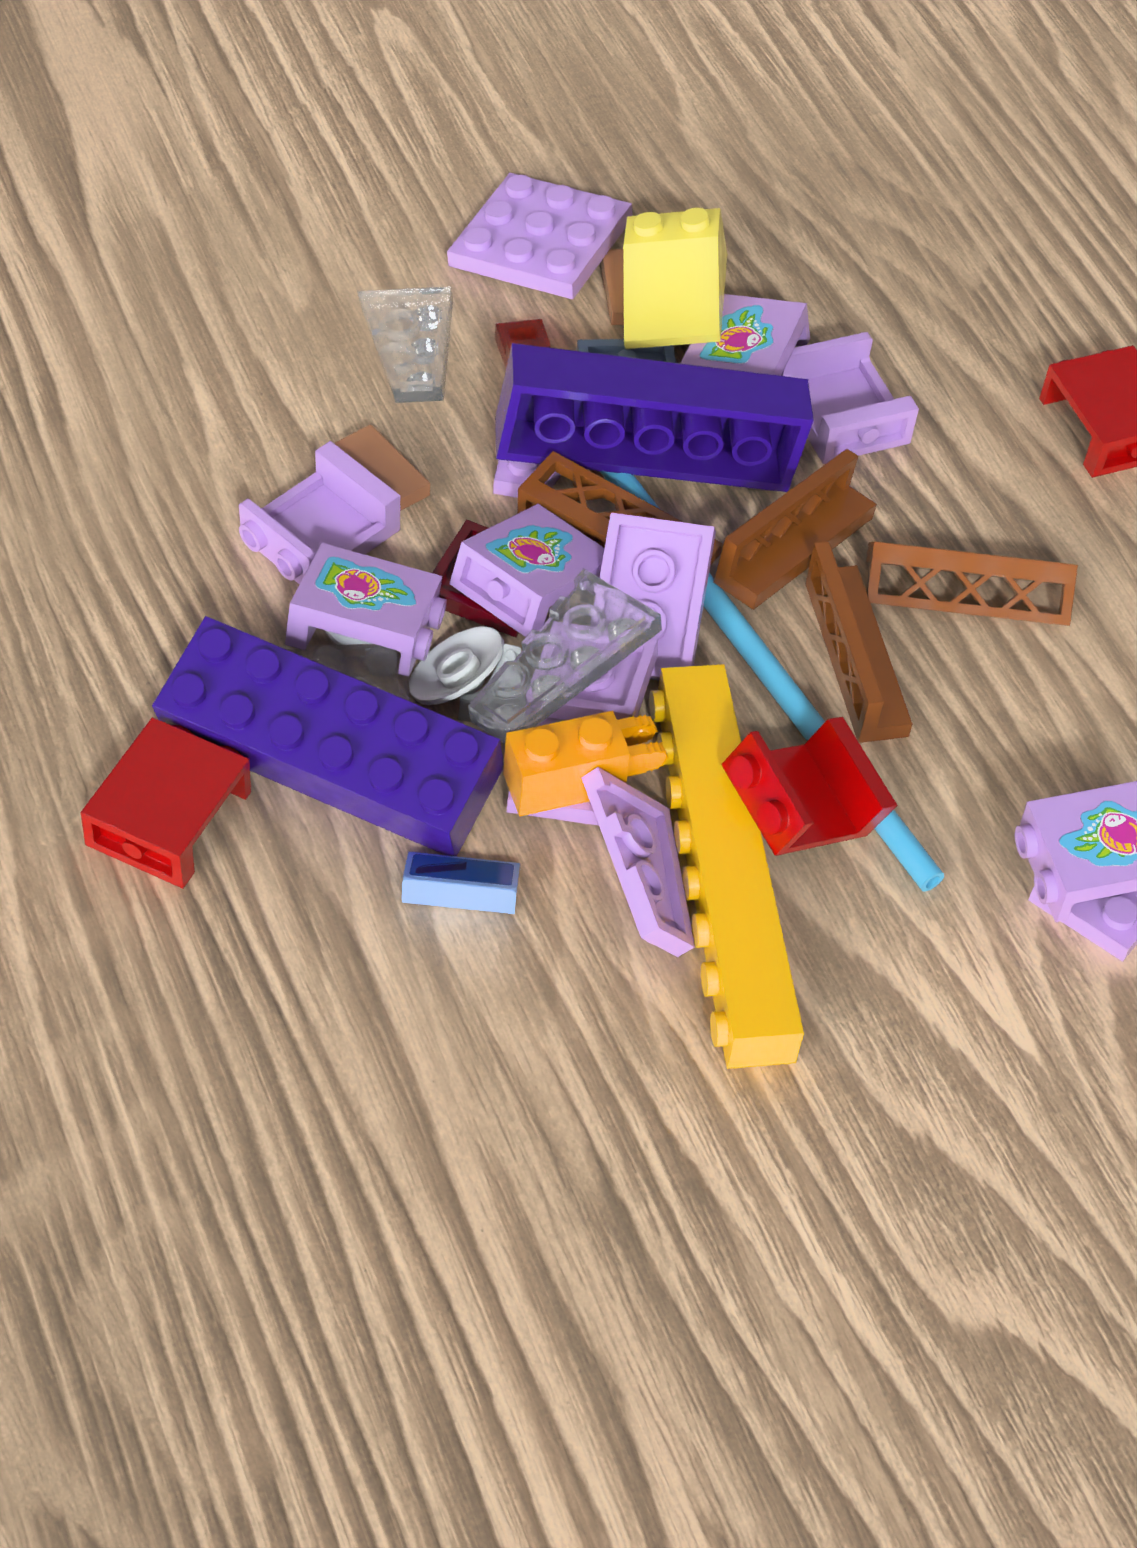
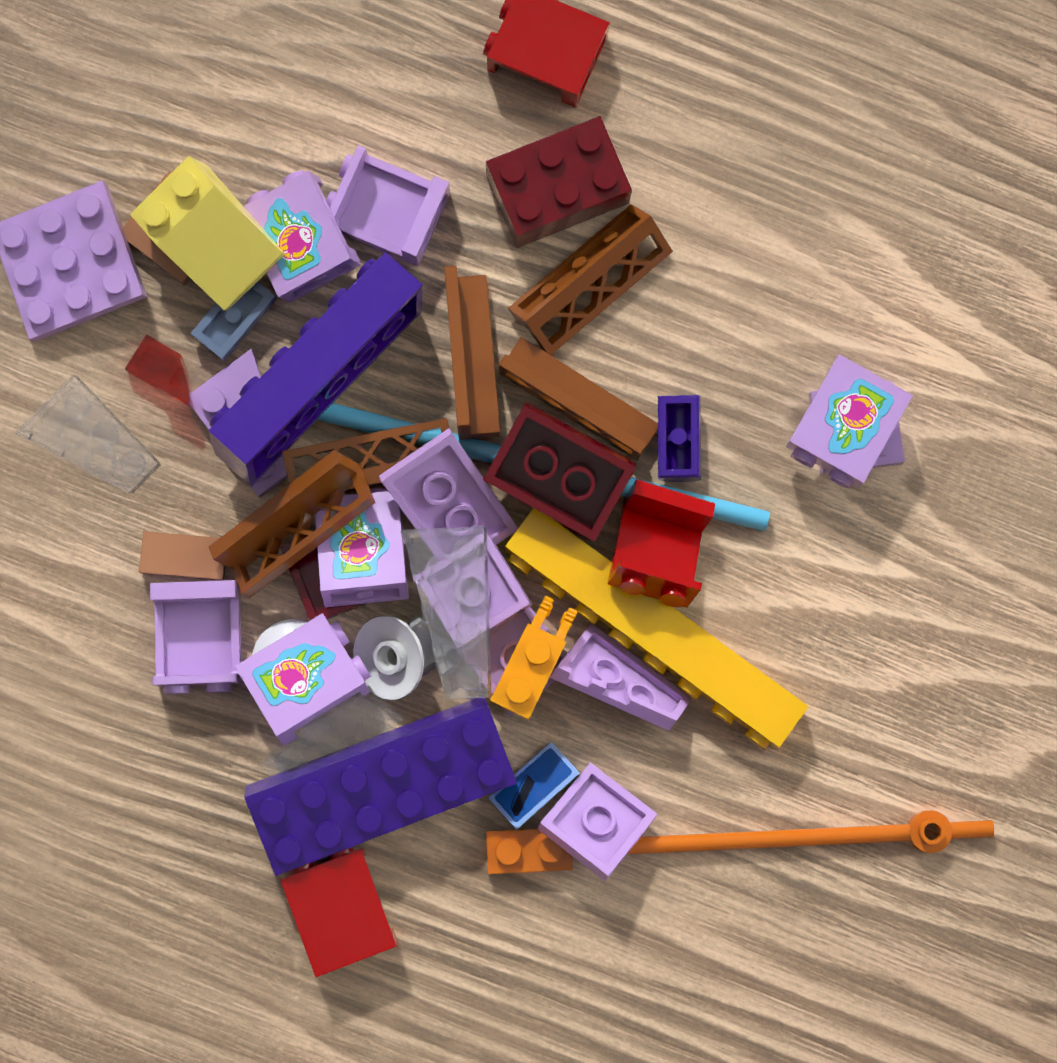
camera: 45 degrees left, 30 degrees up
(419, 943) = (534, 852): none -> orange bar
(484, 944) = (597, 821): none -> lavender plate
(501, 490) = (292, 513): none -> dark orange fence
(779, 651) = (560, 471): none -> dark red brick
(920, 744) = (679, 438): none -> dark purple brick
(1016, 492) = (558, 182): none -> dark red brick

